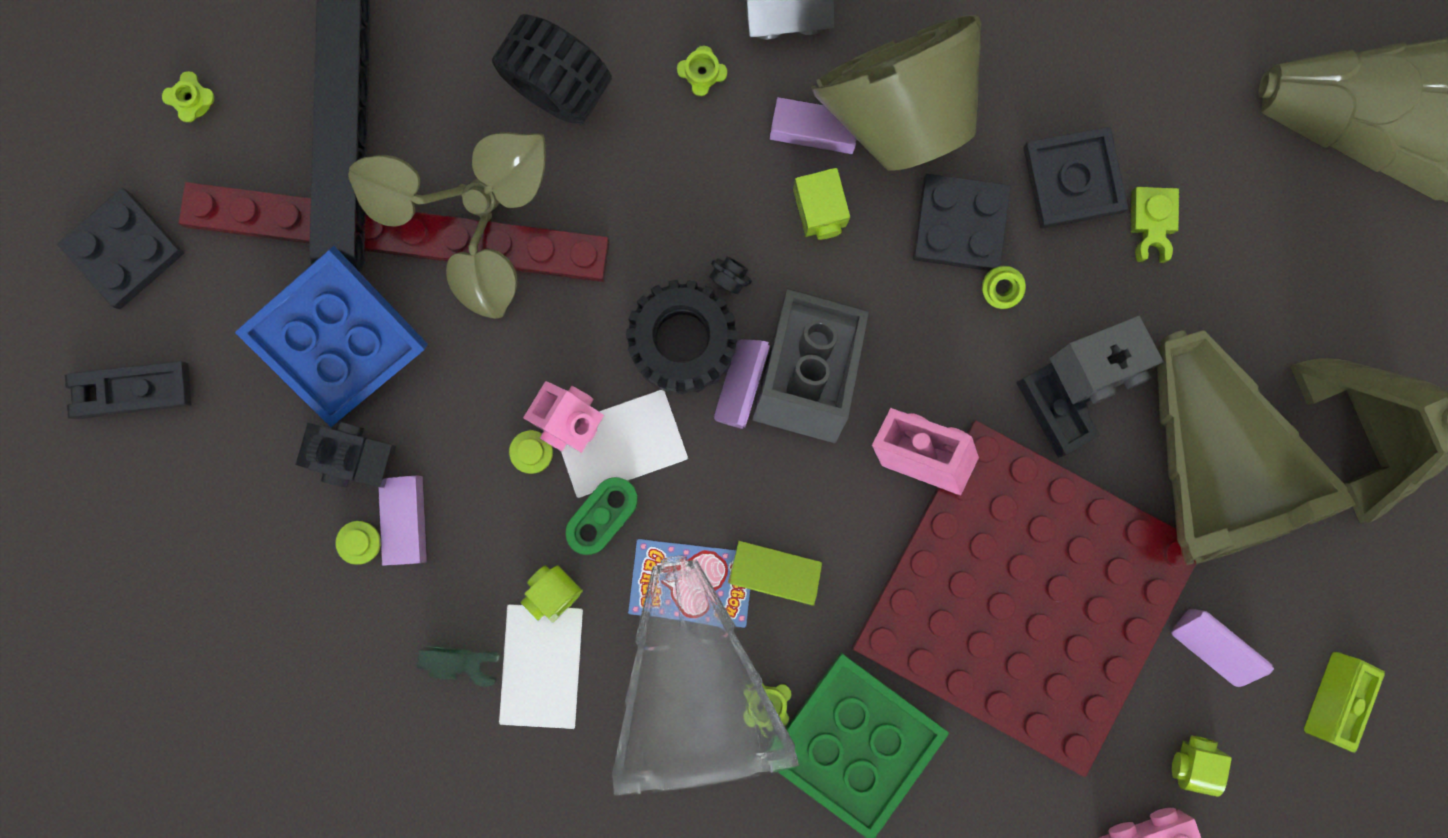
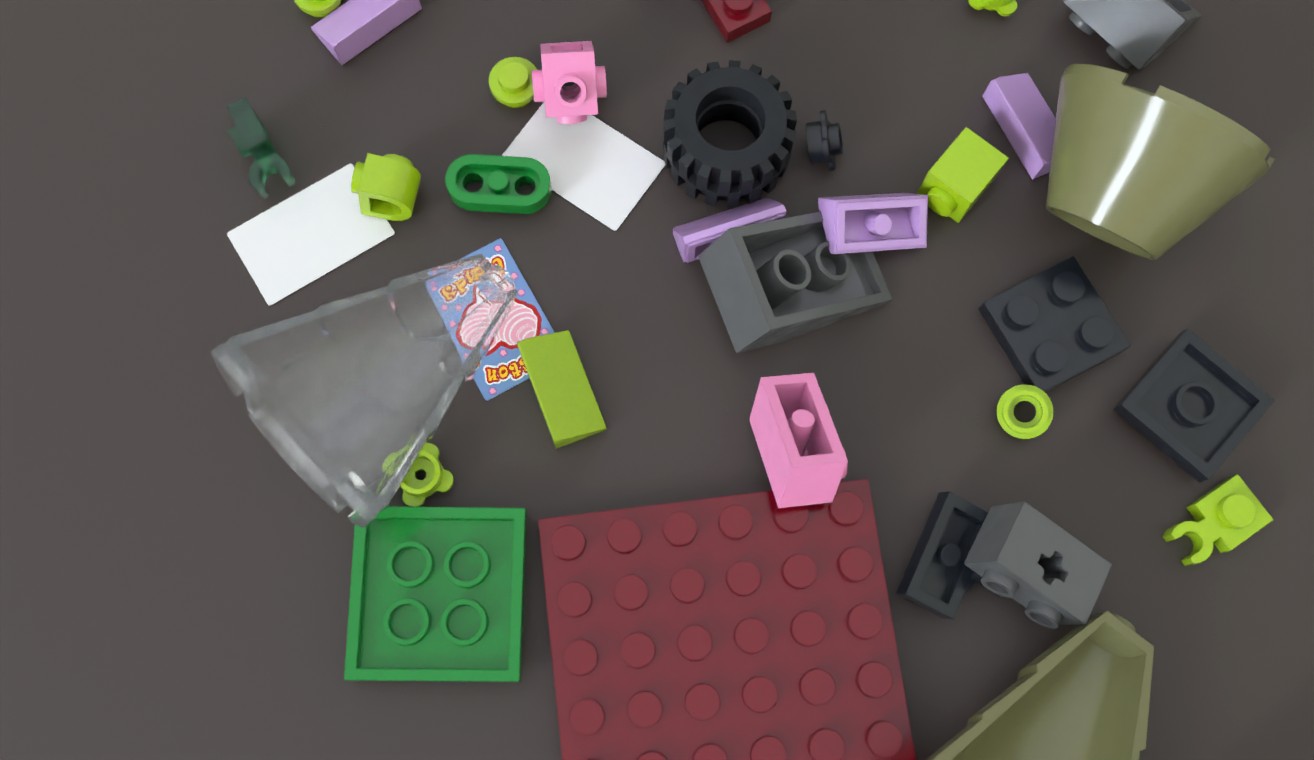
camera: 55 degrees right, 10 degrees down
(809, 284) = (874, 222): none -> lavender slope

